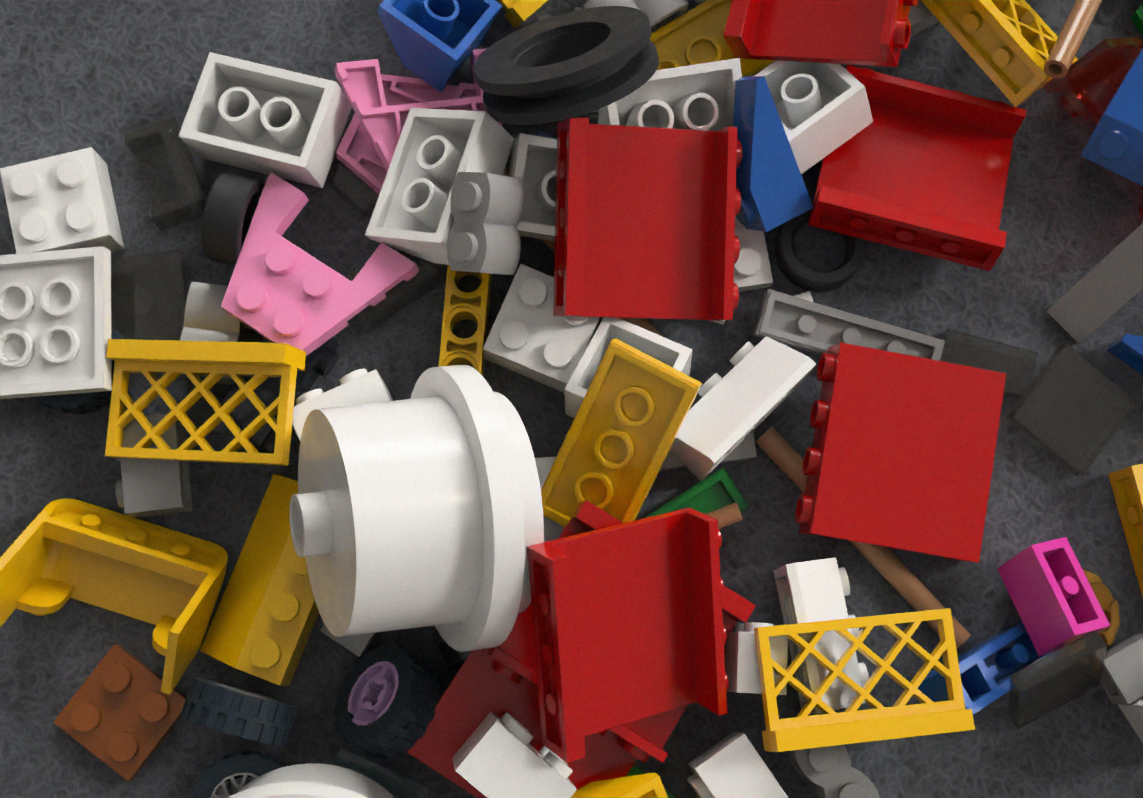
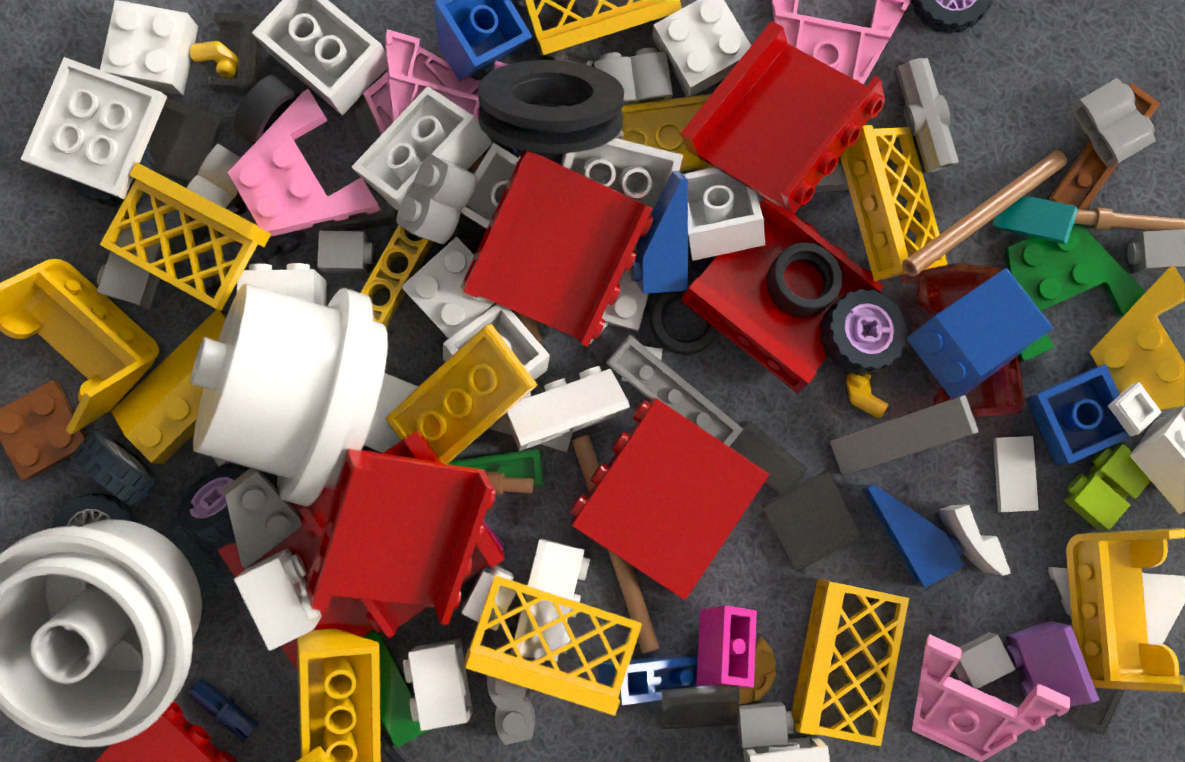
camera: 25 degrees right, 5 degrees up
(158, 184) = (215, 50): none -> yellow arm
(395, 341) = (344, 252): none -> light grey brick
(441, 686) = (258, 515): none -> light grey wing
(943, 114) = (825, 265): none -> black tyre
(1029, 171) = (863, 332): none -> black wheel
(1054, 244) = (861, 395): none -> yellow arm

